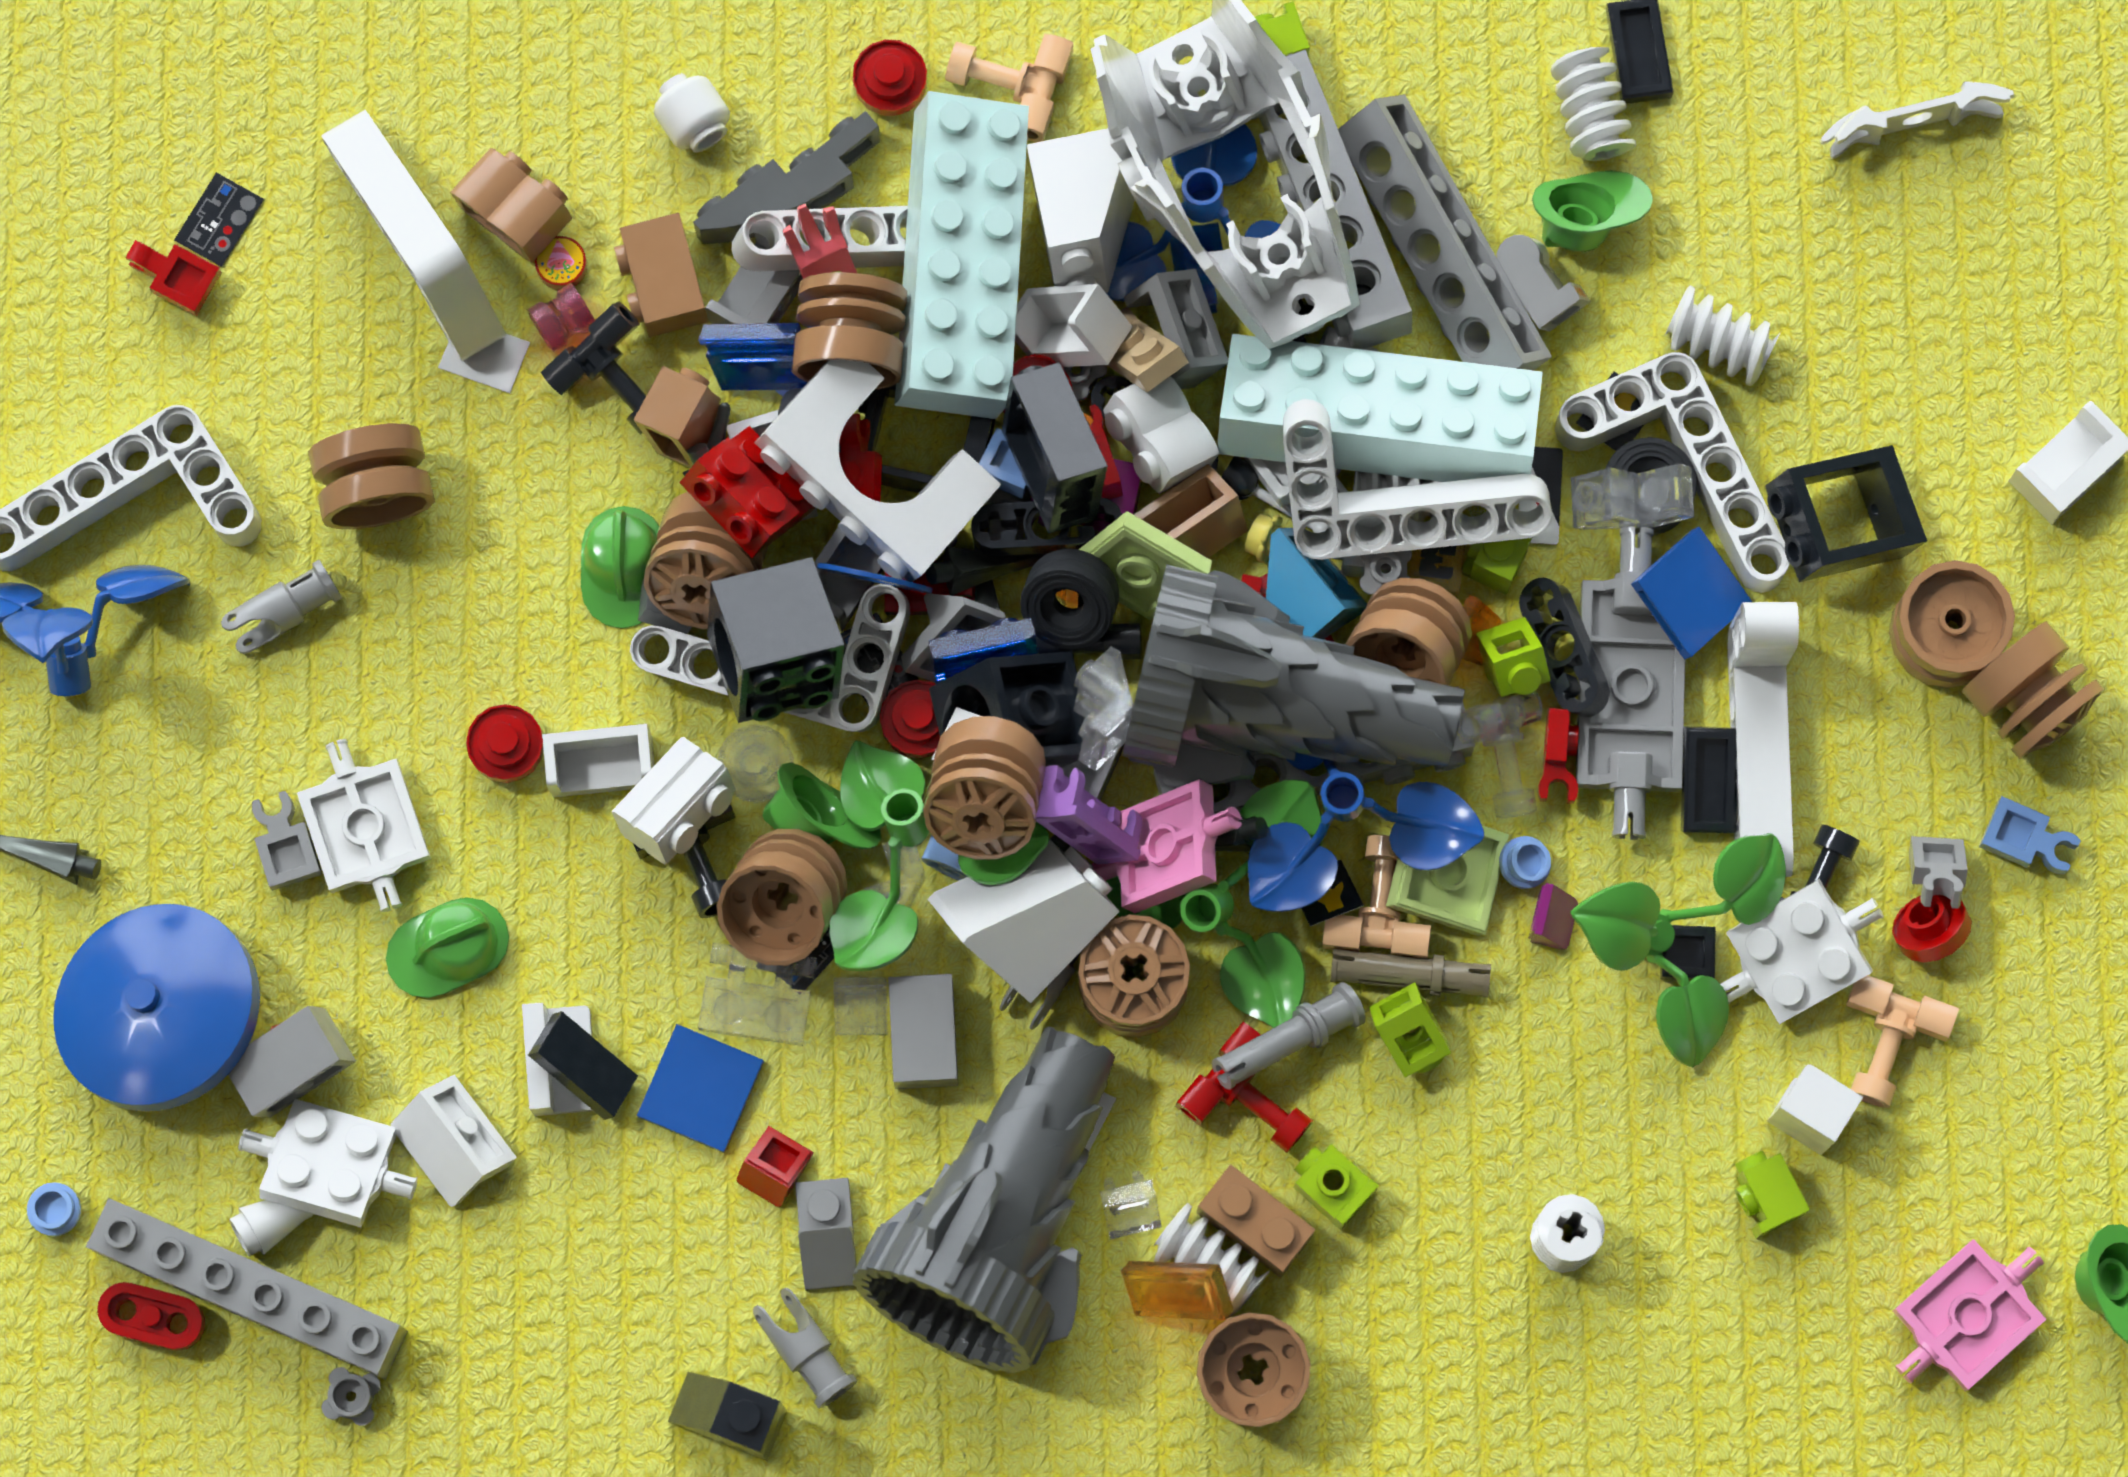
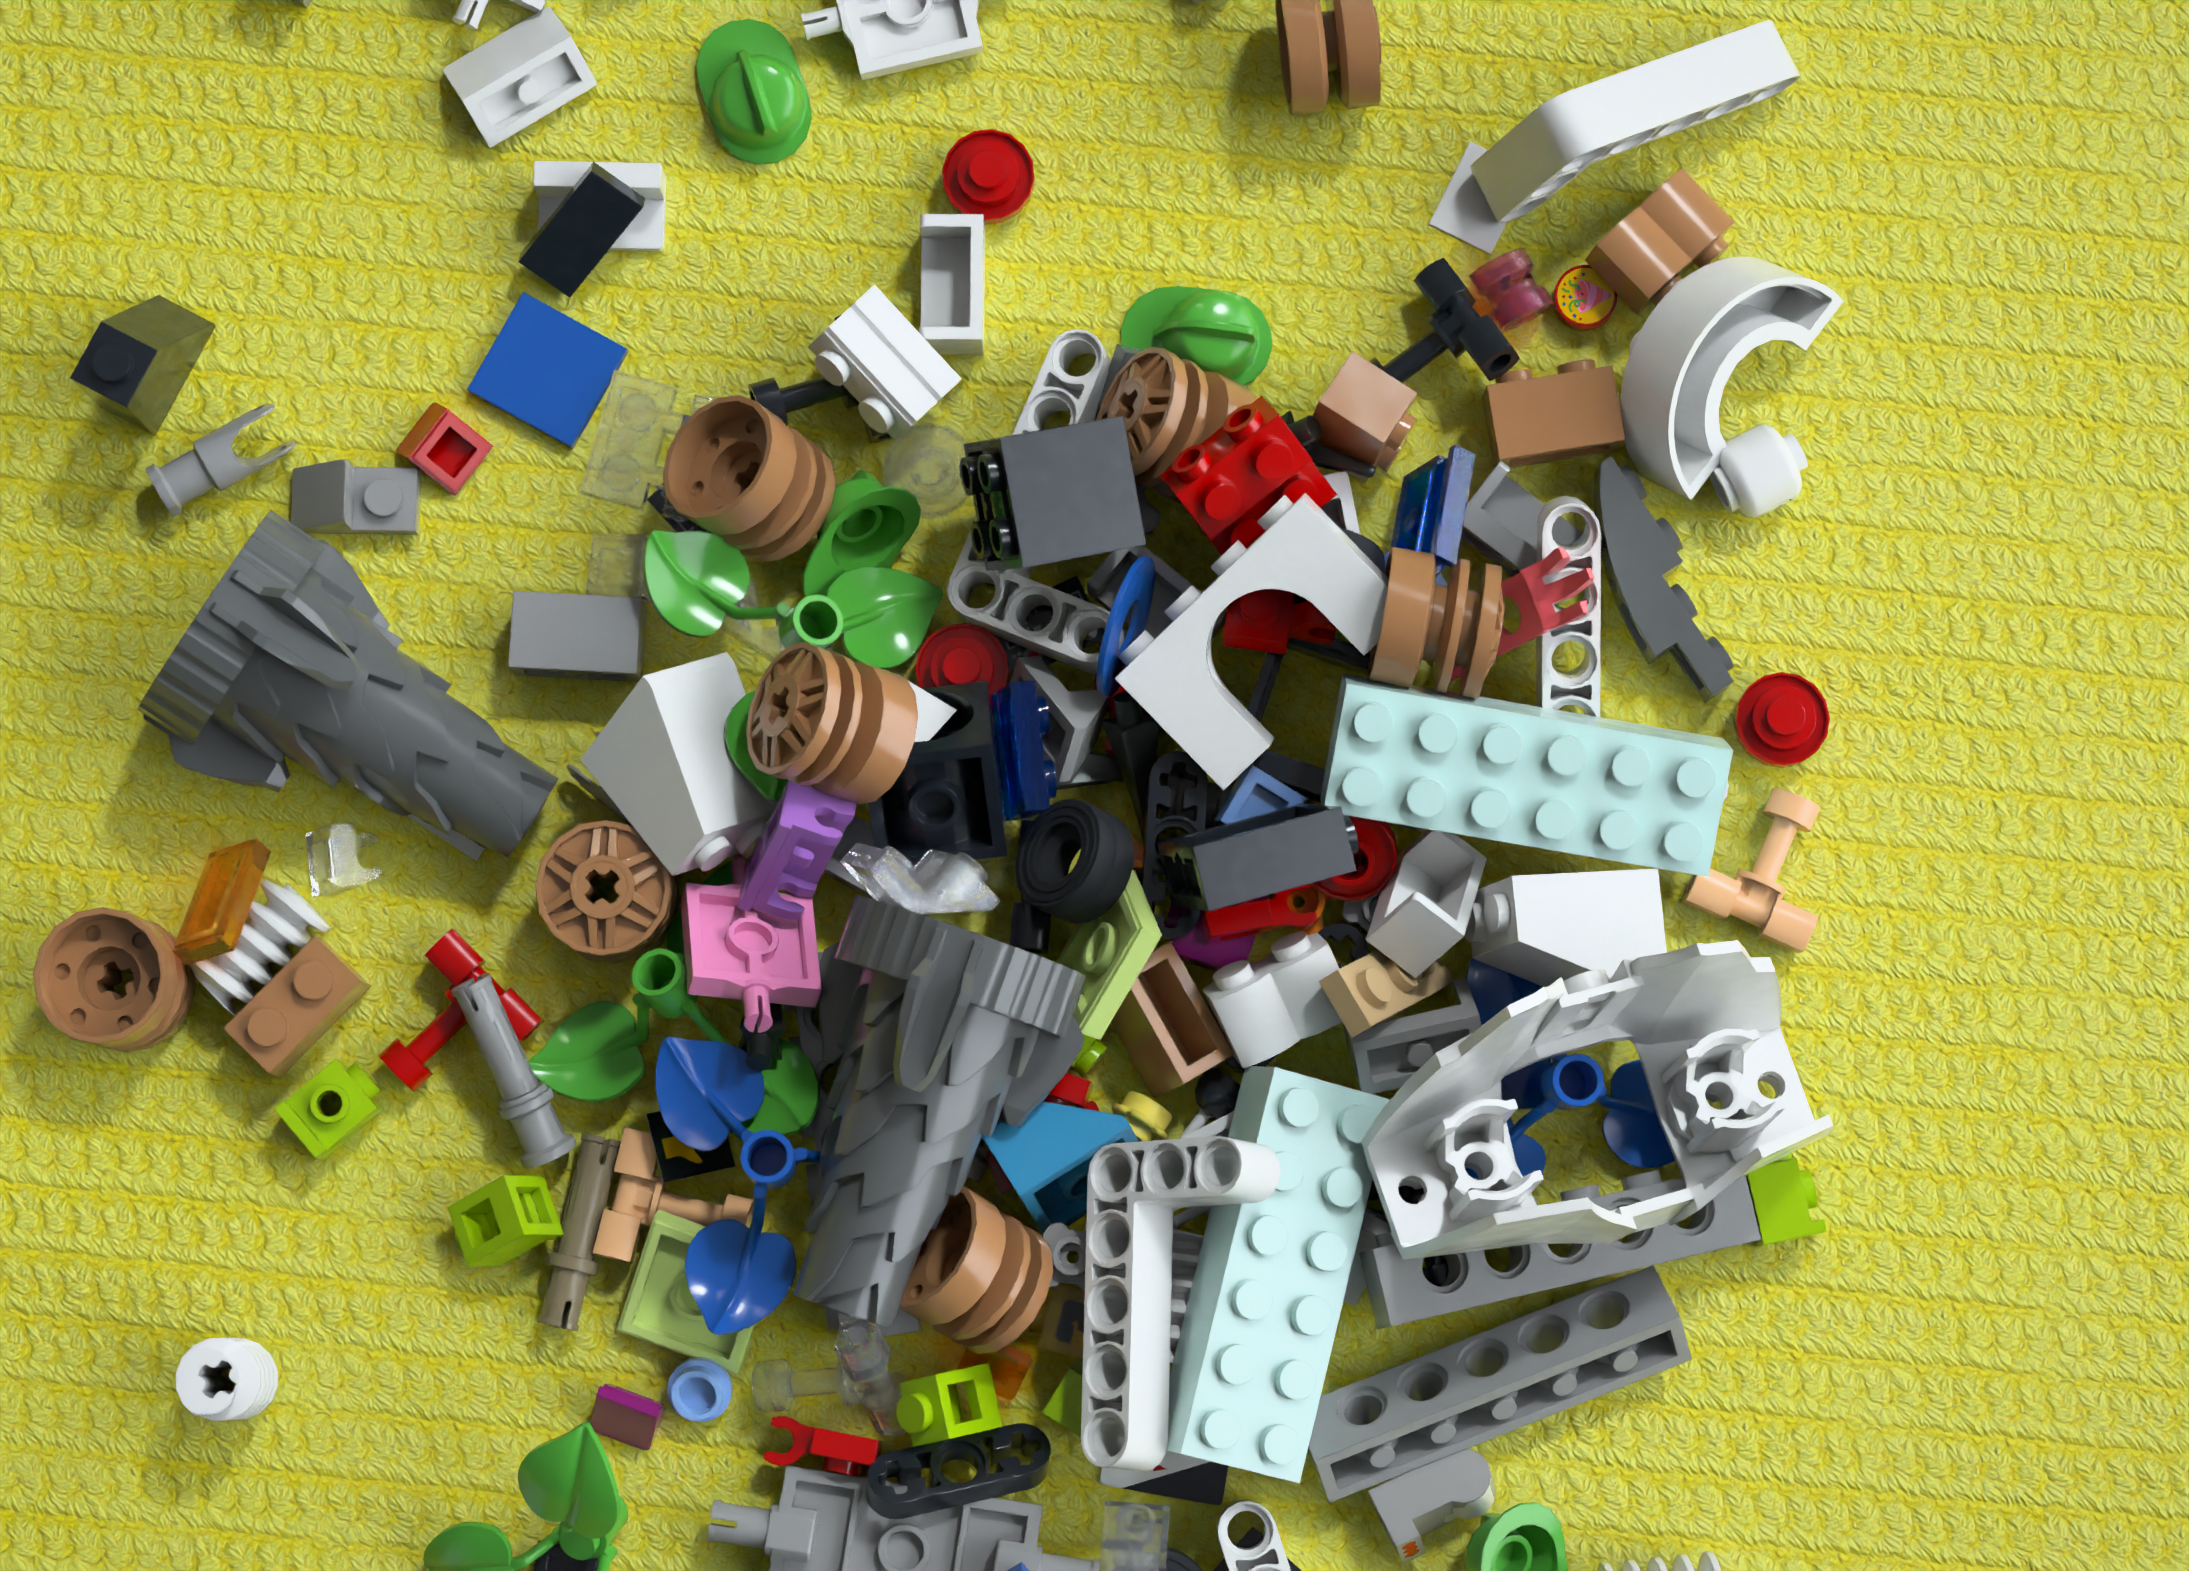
camera: 95 degrees right, 5 degrees up
(604, 164) = (1692, 348): none -> white brick

